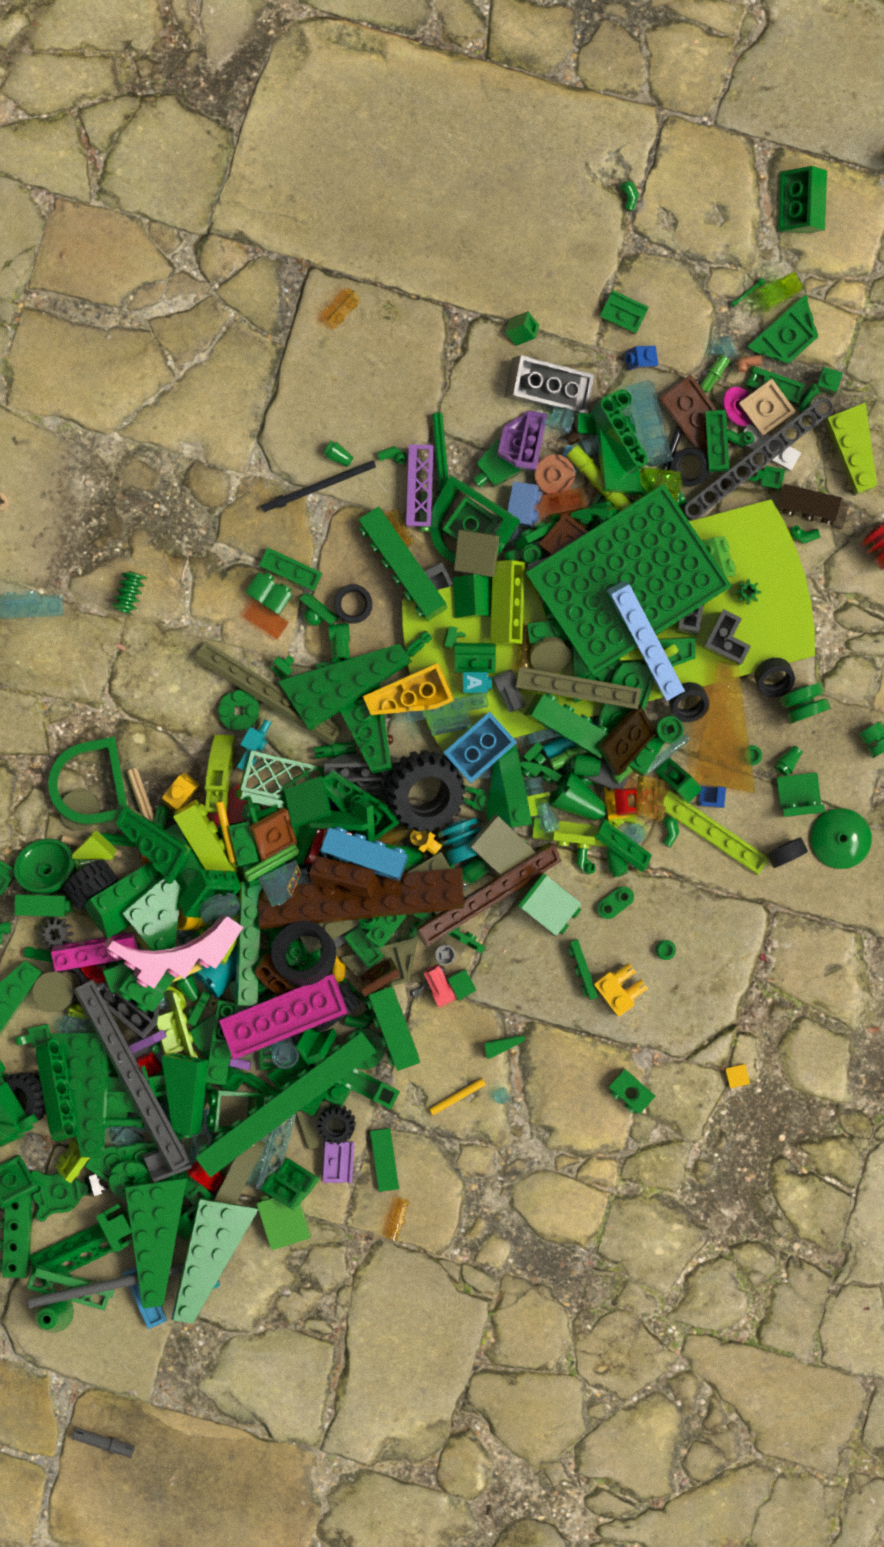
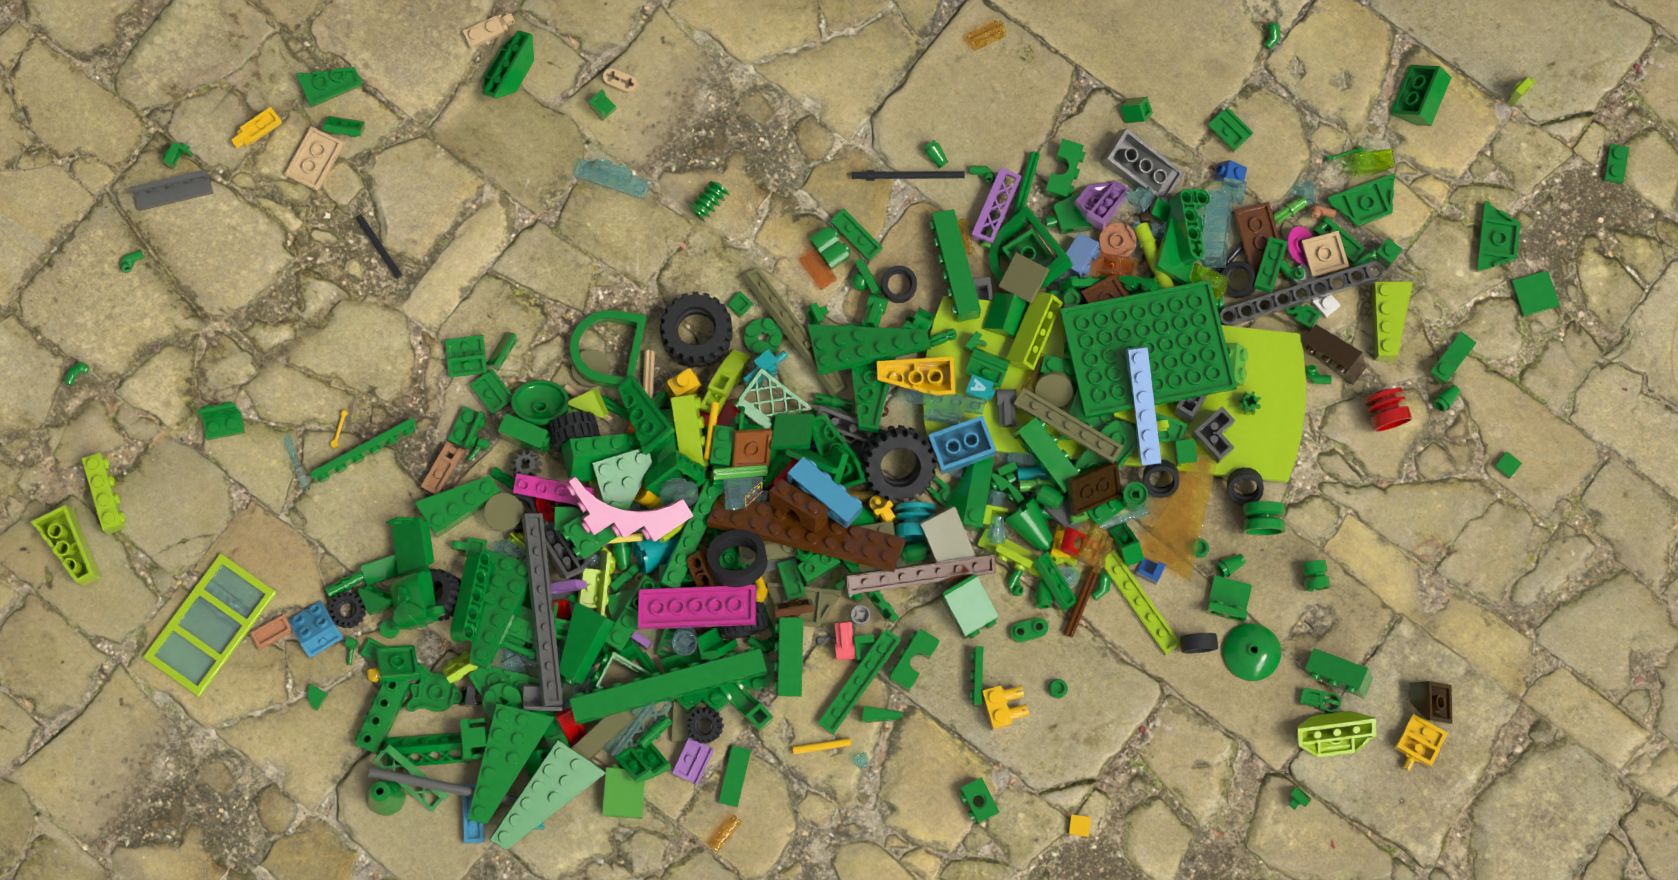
camera: 20 degrees right, 10 degrees down
(141, 731) = (696, 305): none -> black tyre
(202, 686) = (740, 304): none -> green tile
(289, 1149) = (653, 732): none -> green pin
(390, 633) = (921, 320): none -> green piece
(469, 1020) = (859, 681): none -> green plate
(474, 402) = (1070, 155): none -> green arch
(515, 959) = (921, 644): none -> green arch
(651, 372) = (1236, 187): none -> clear light blue panel
(656, 857) = (1080, 603): none -> reddish brown axle
(703, 667) = (1185, 452): none -> green panel

